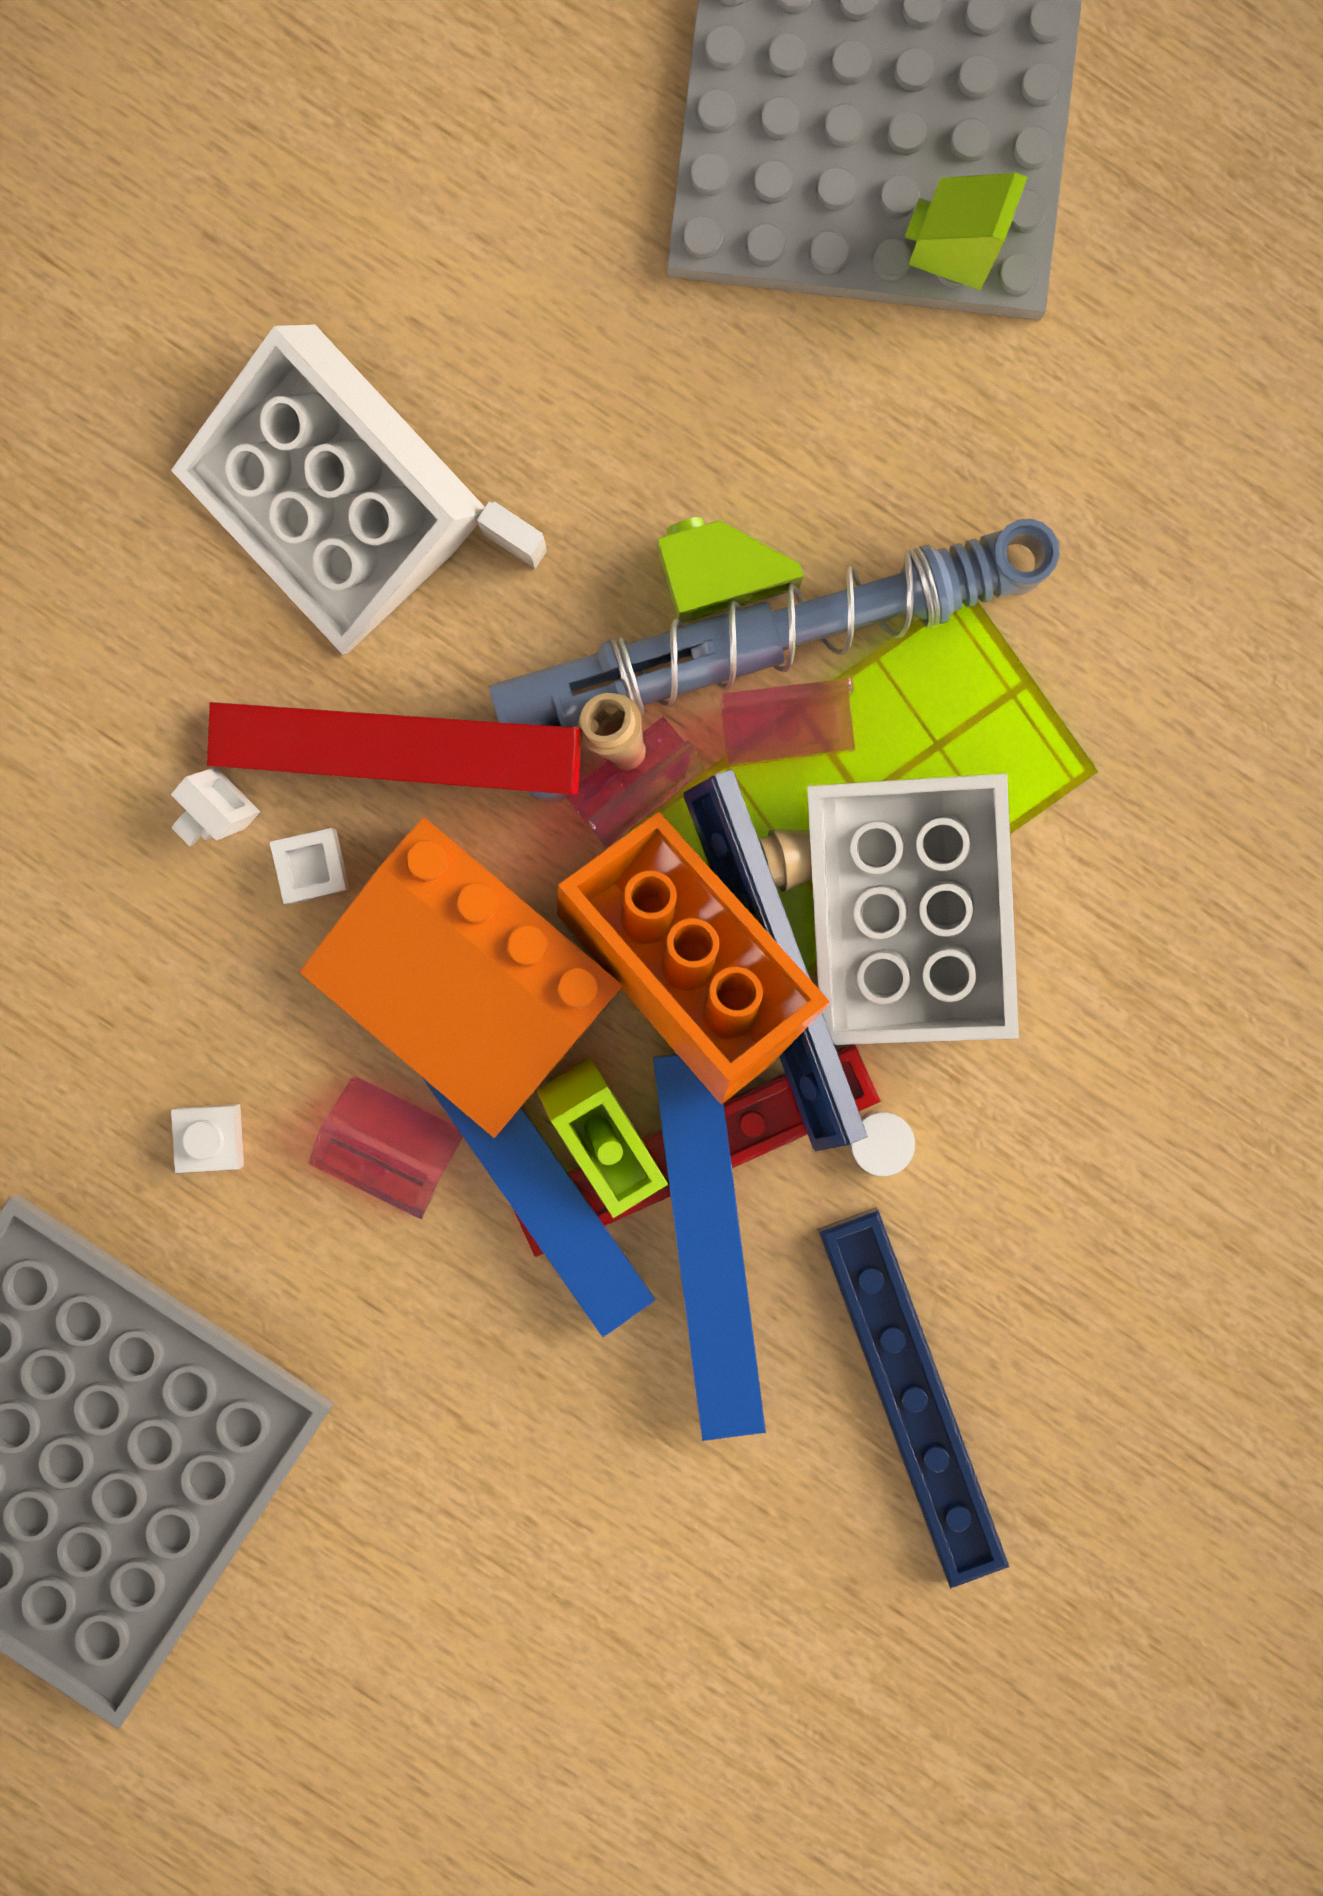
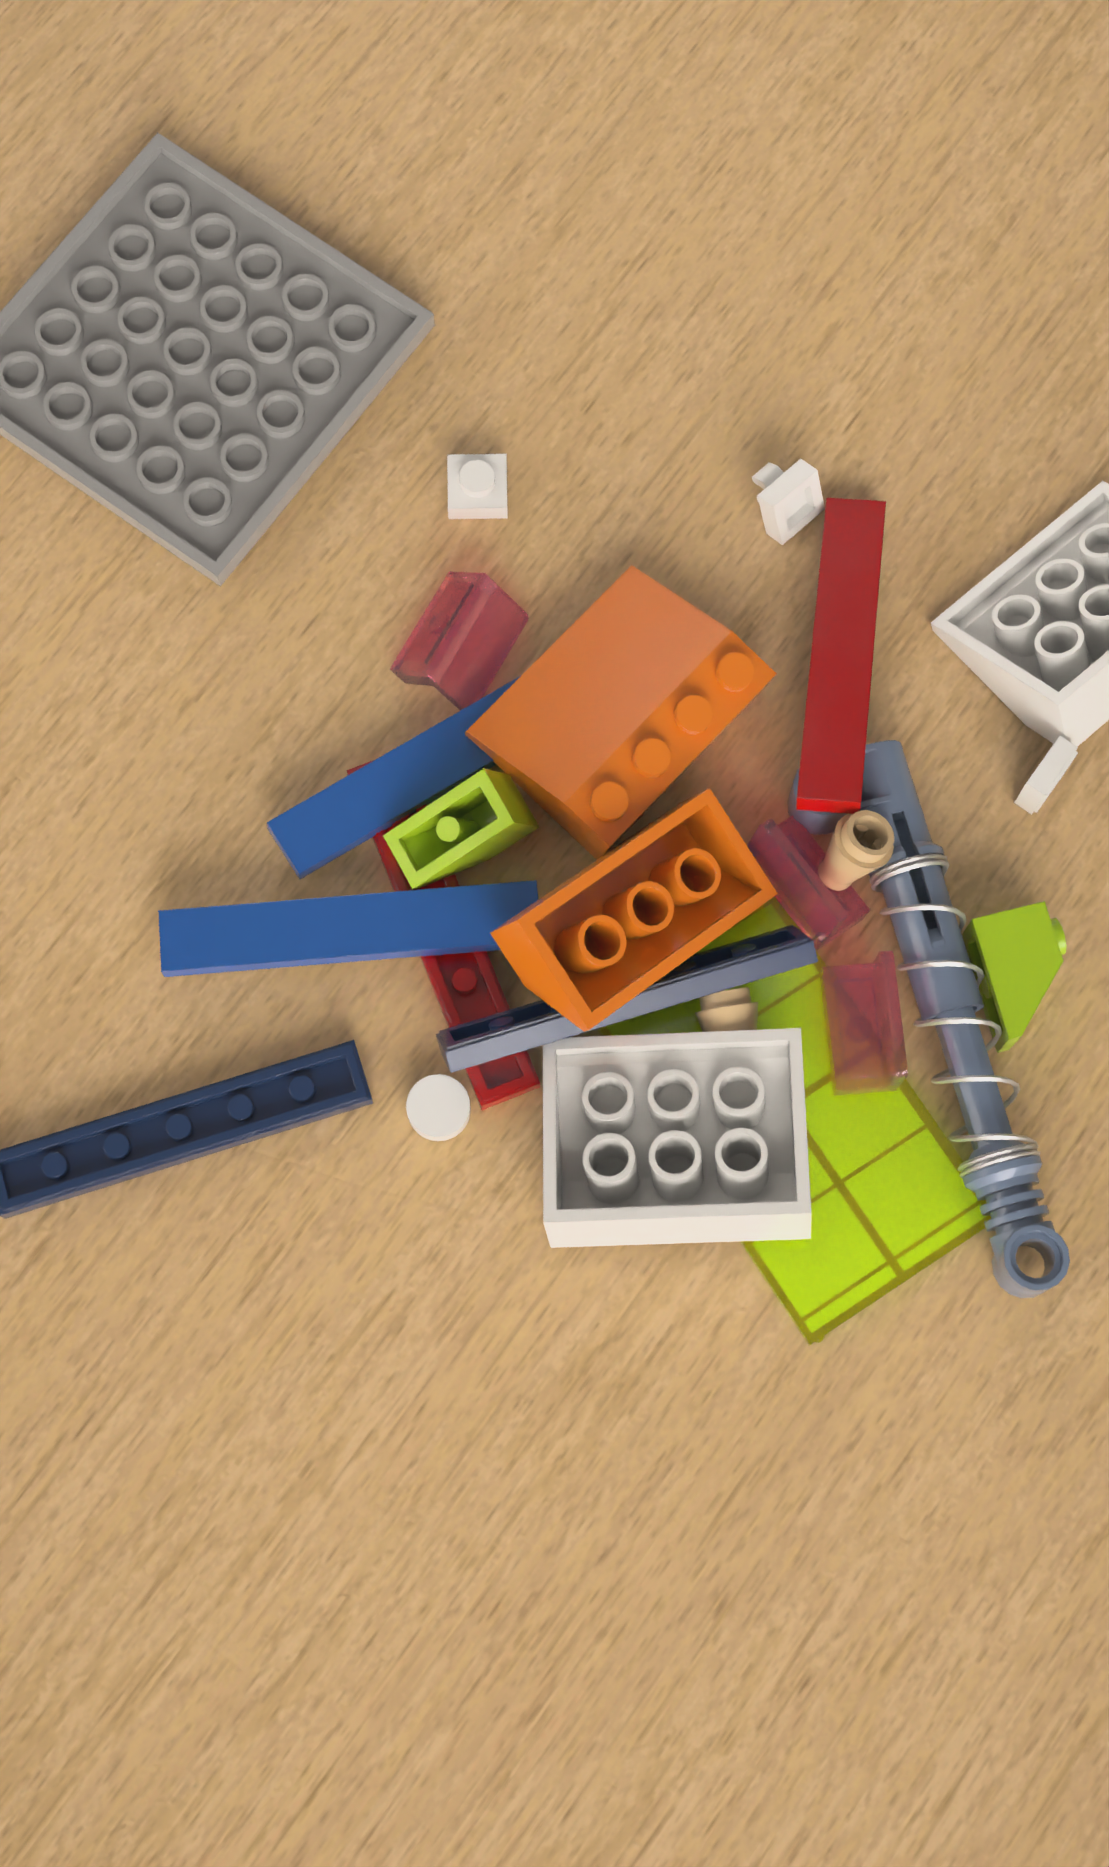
camera: 90 degrees right, 15 degrees down
(309, 866) = (730, 582): white plate -> none

